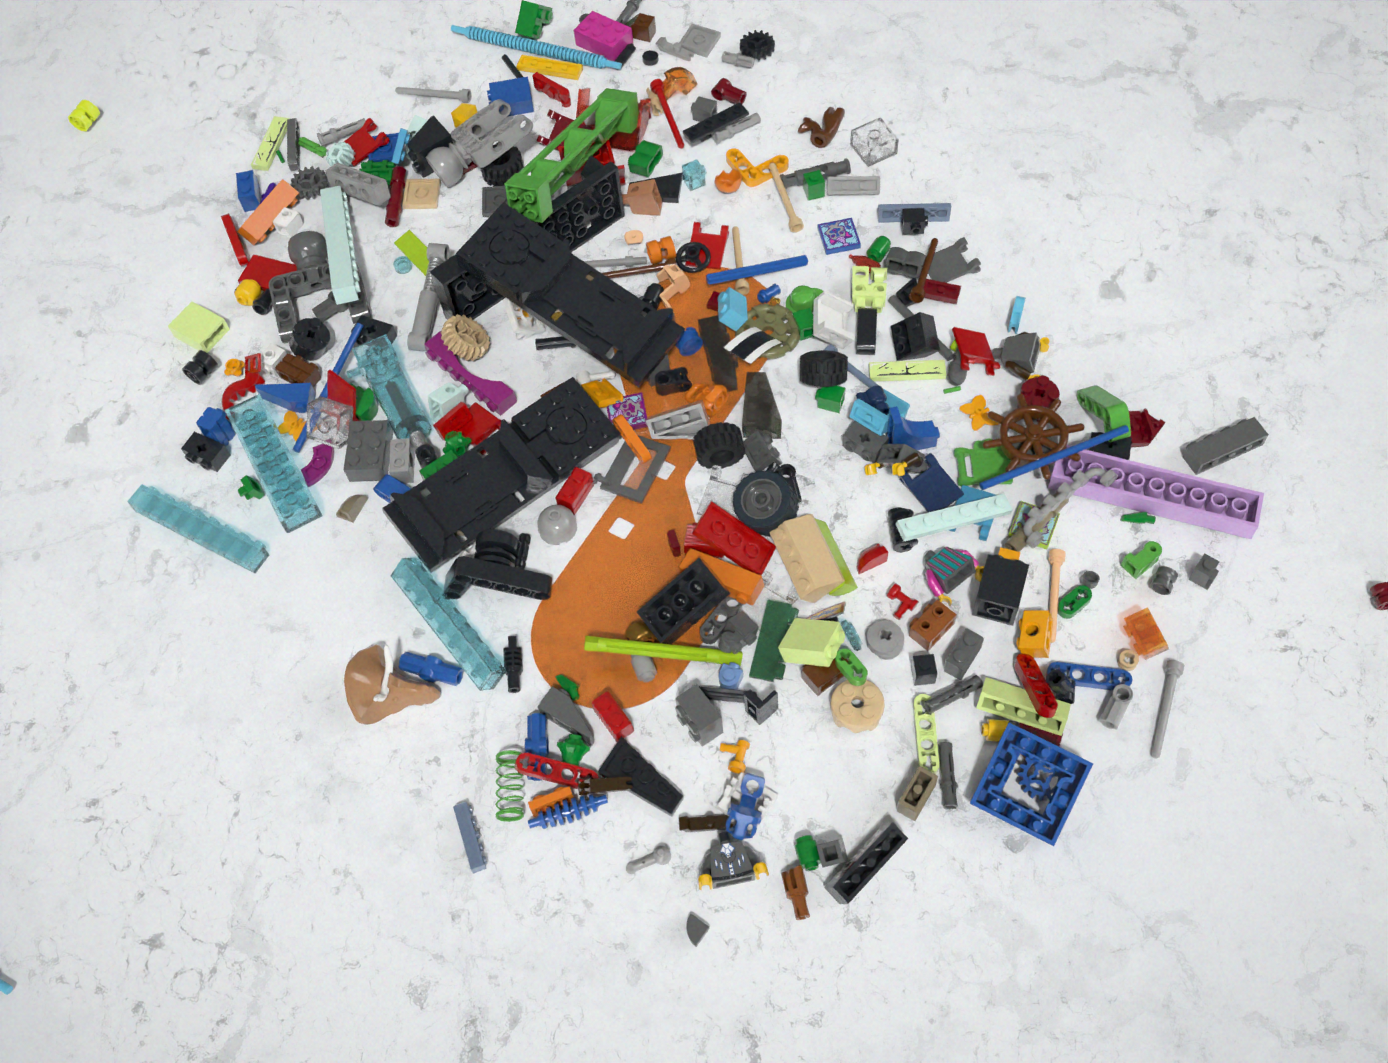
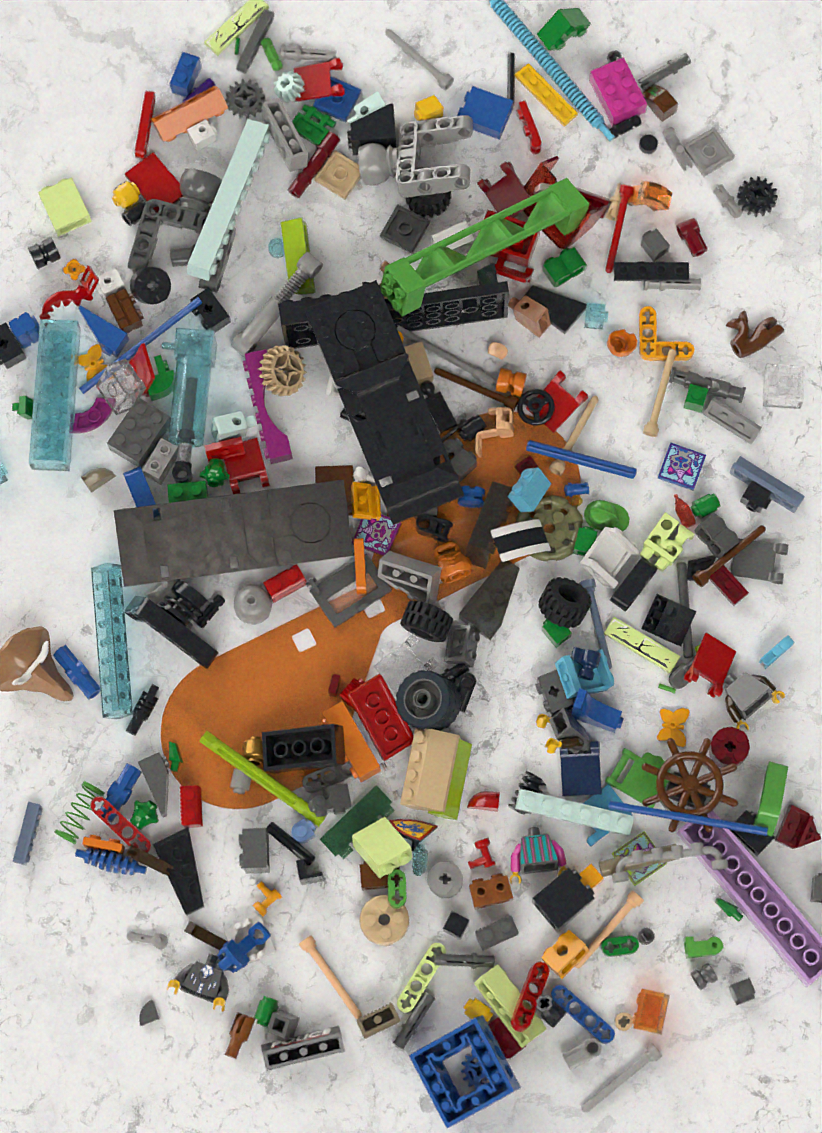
camera: 30 degrees right, 15 degrees up
(399, 153) = (339, 124): dark azure wing -> none
(804, 771) = (309, 946): none -> light nougat piece

